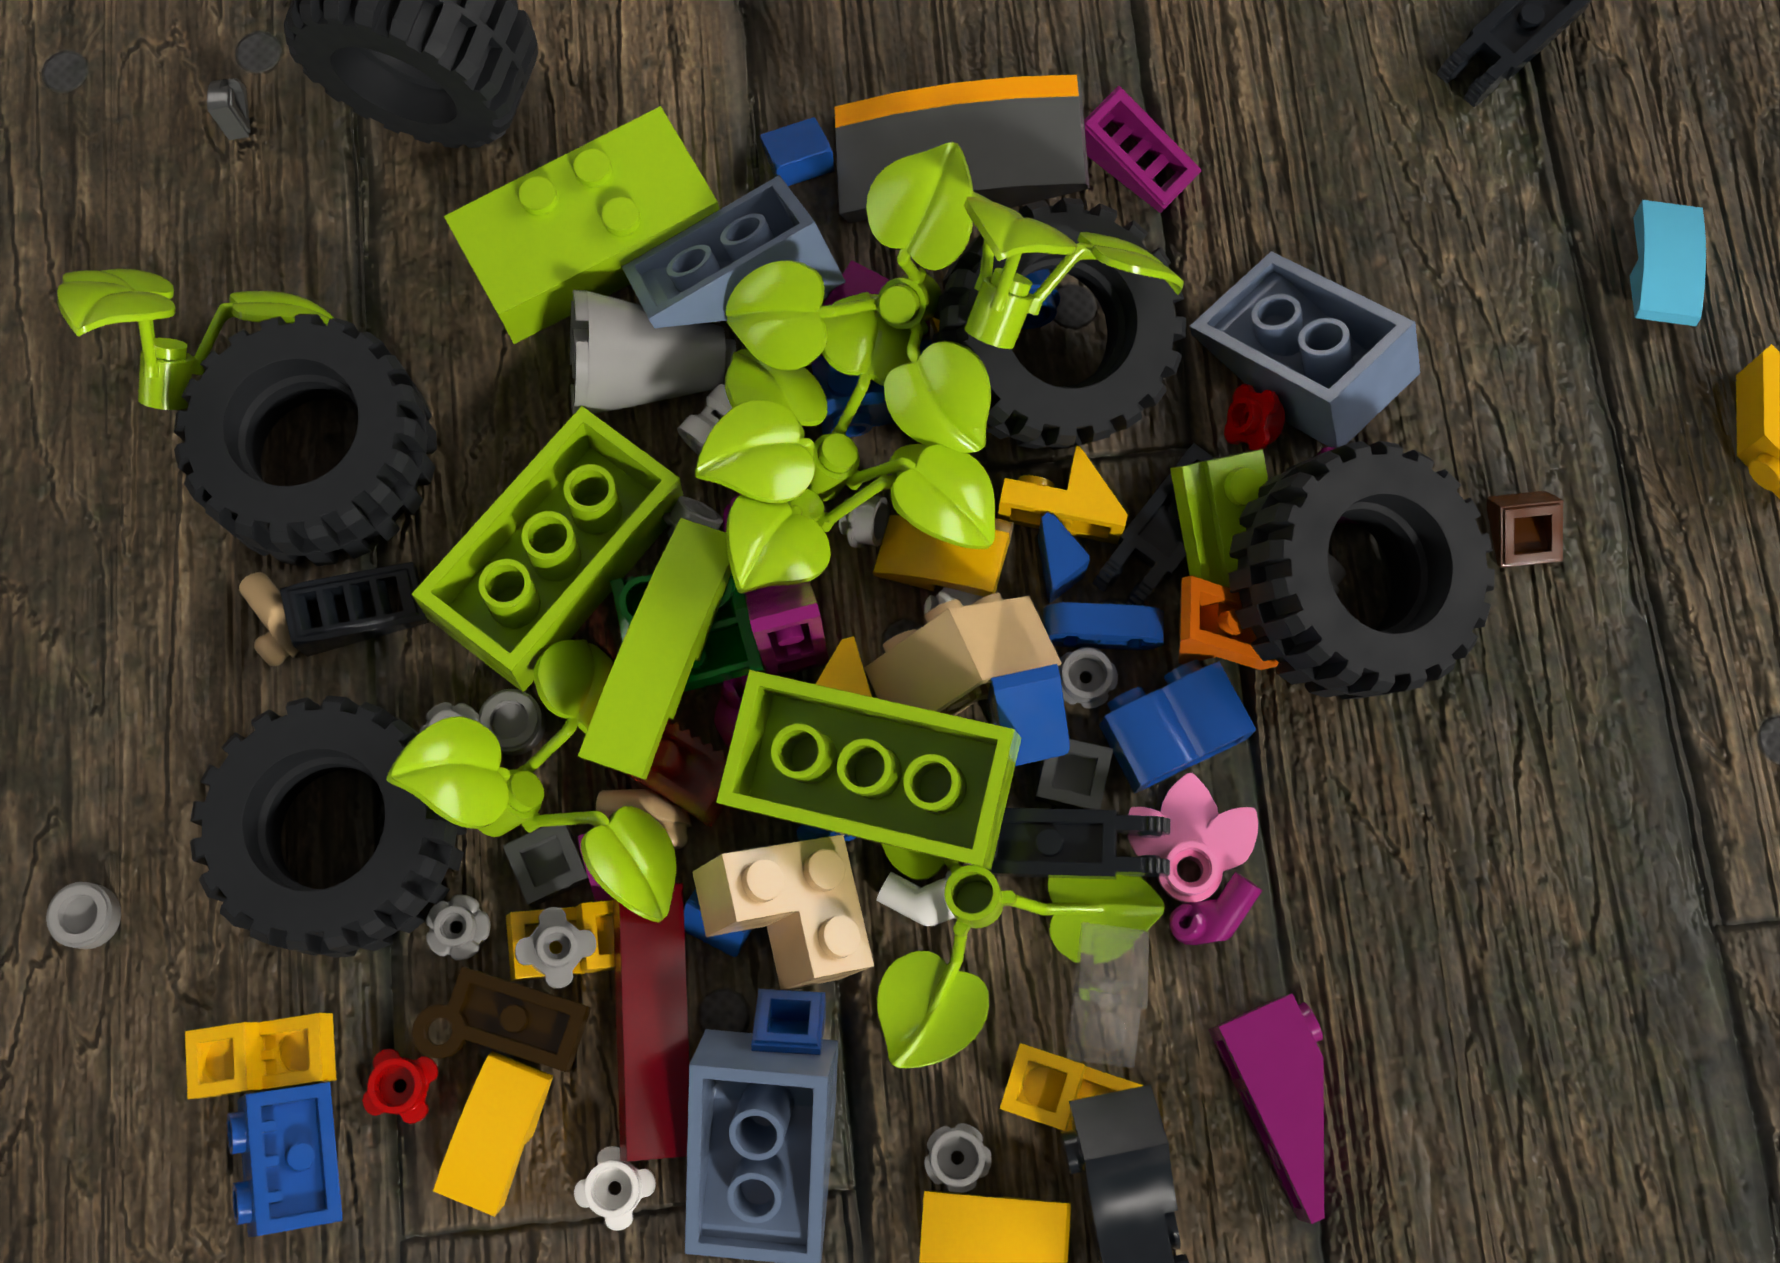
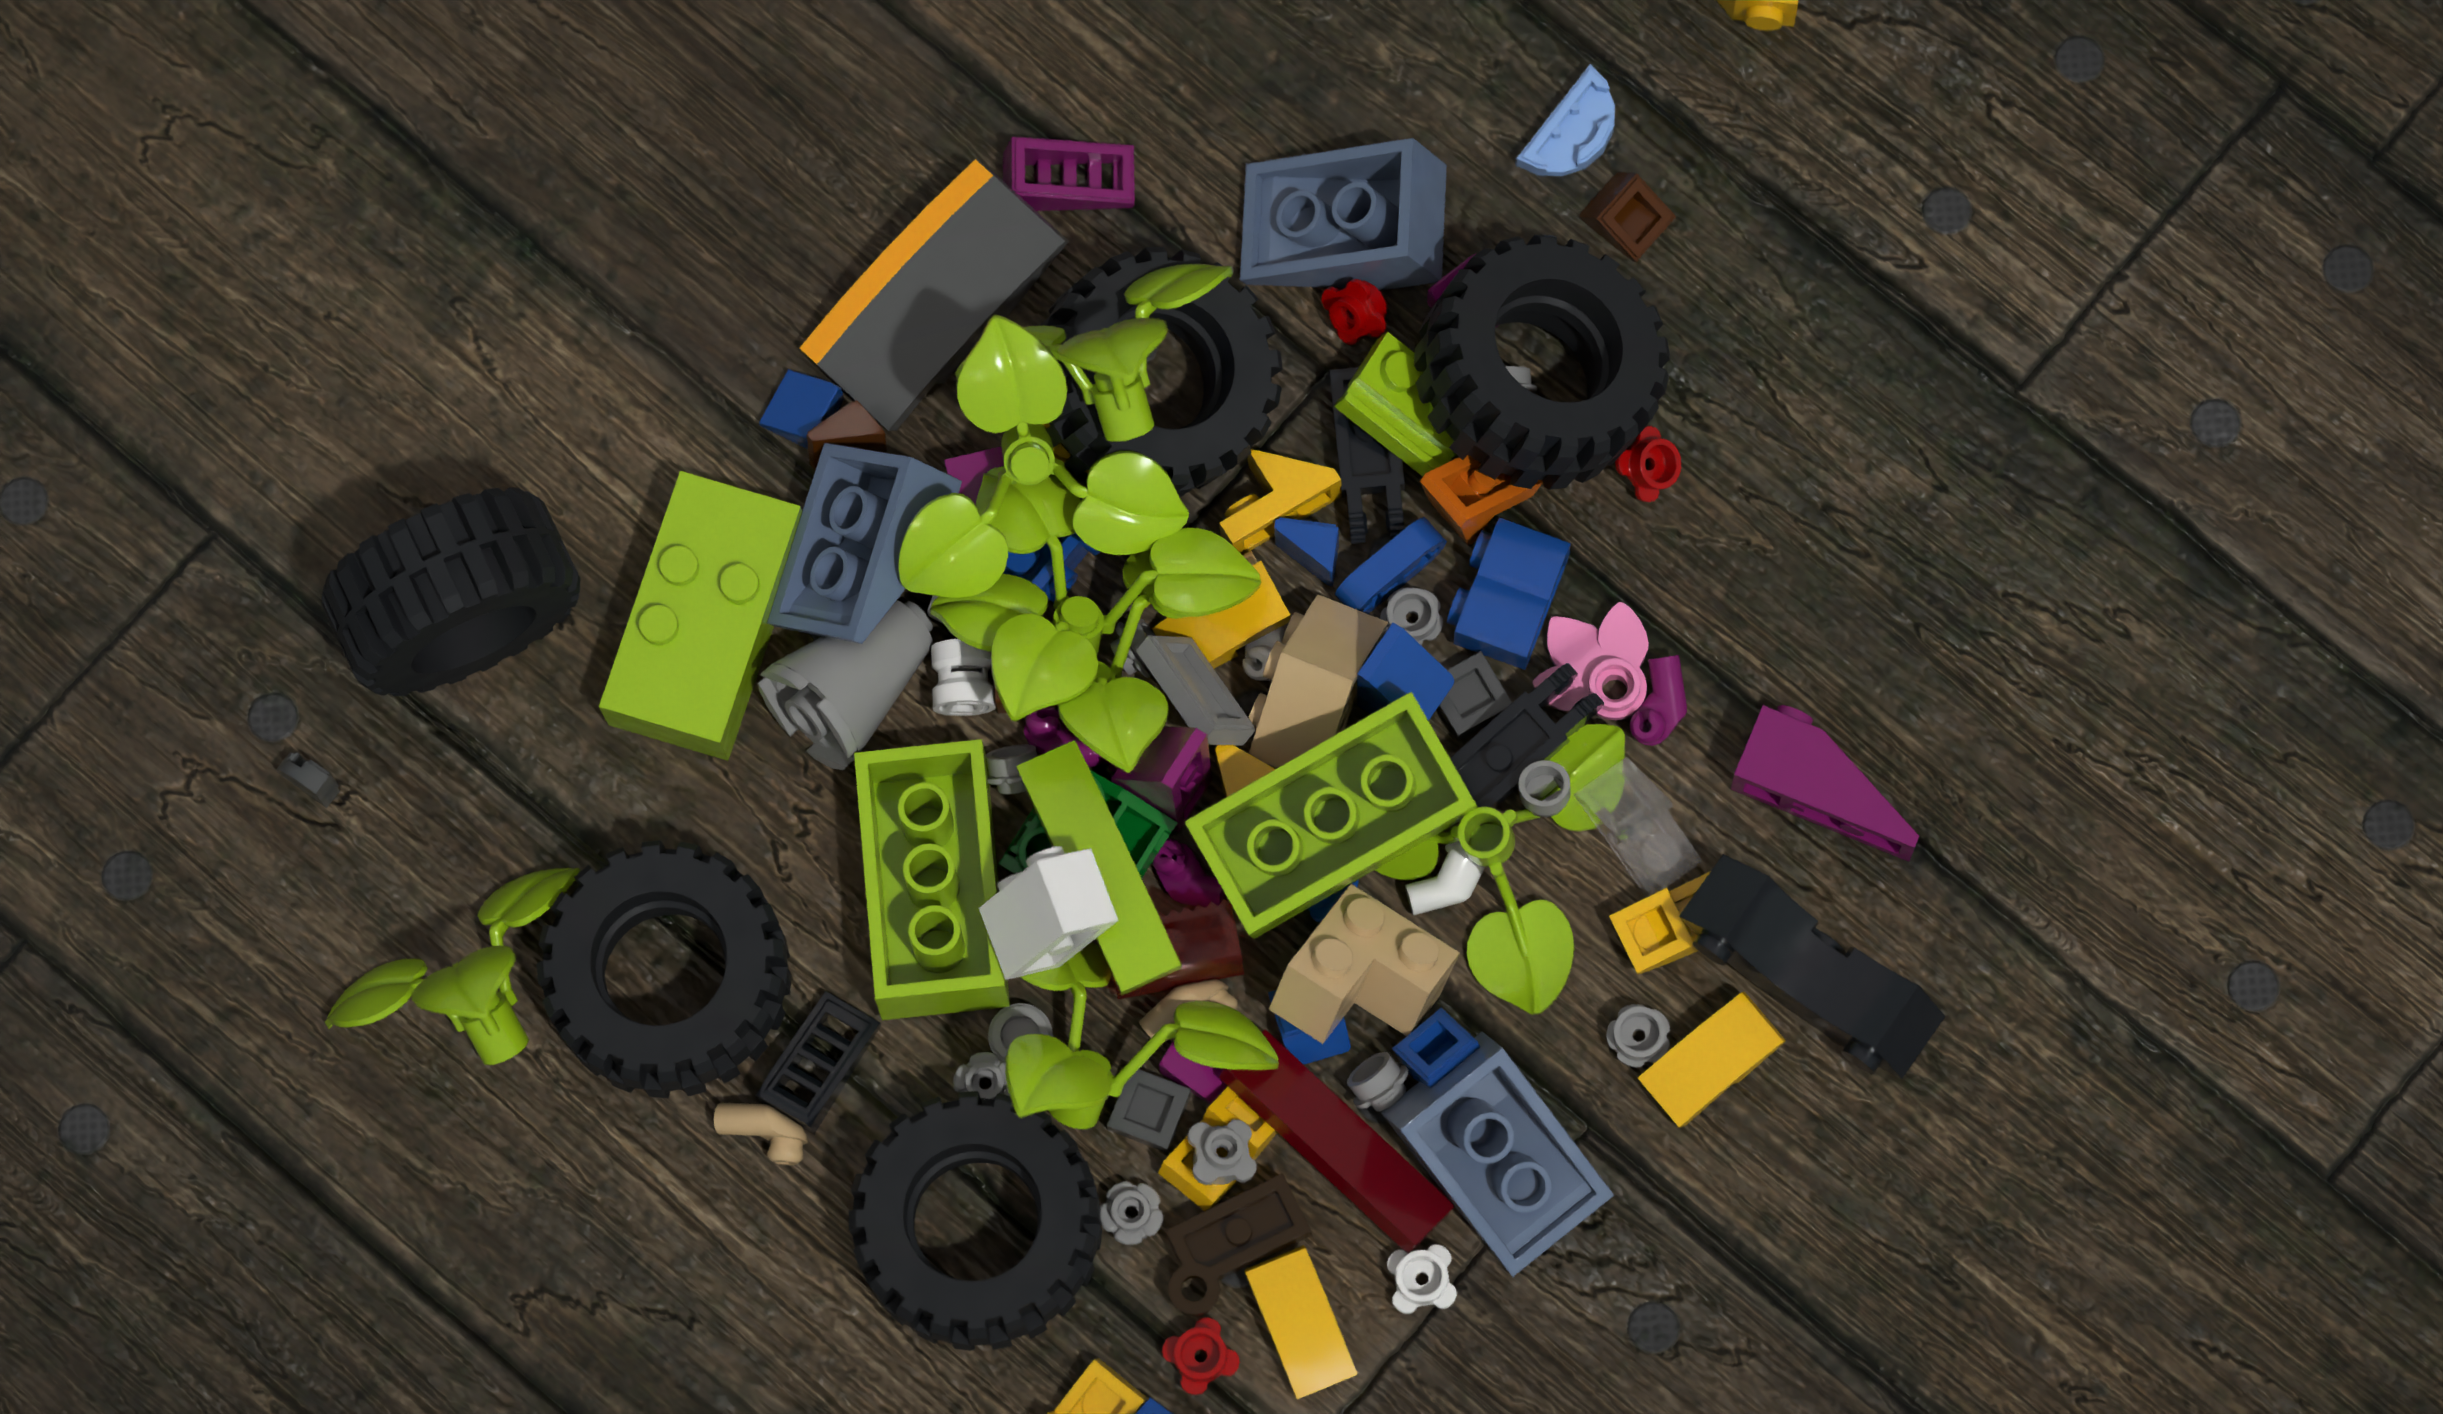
camera: 40 degrees left, 0 degrees up
(584, 642) = (1047, 912): none -> white brick
(725, 1003) = (1378, 1082): none -> light grey plate
(808, 183) = (847, 427): none -> reddish brown slope
(867, 584) = (1195, 689): none -> light grey tile
(1061, 887) = (1539, 780): none -> light grey hinge
(1385, 733) = (1663, 464): none -> red plate
(1539, 433) = (1574, 131): none -> light blue tile

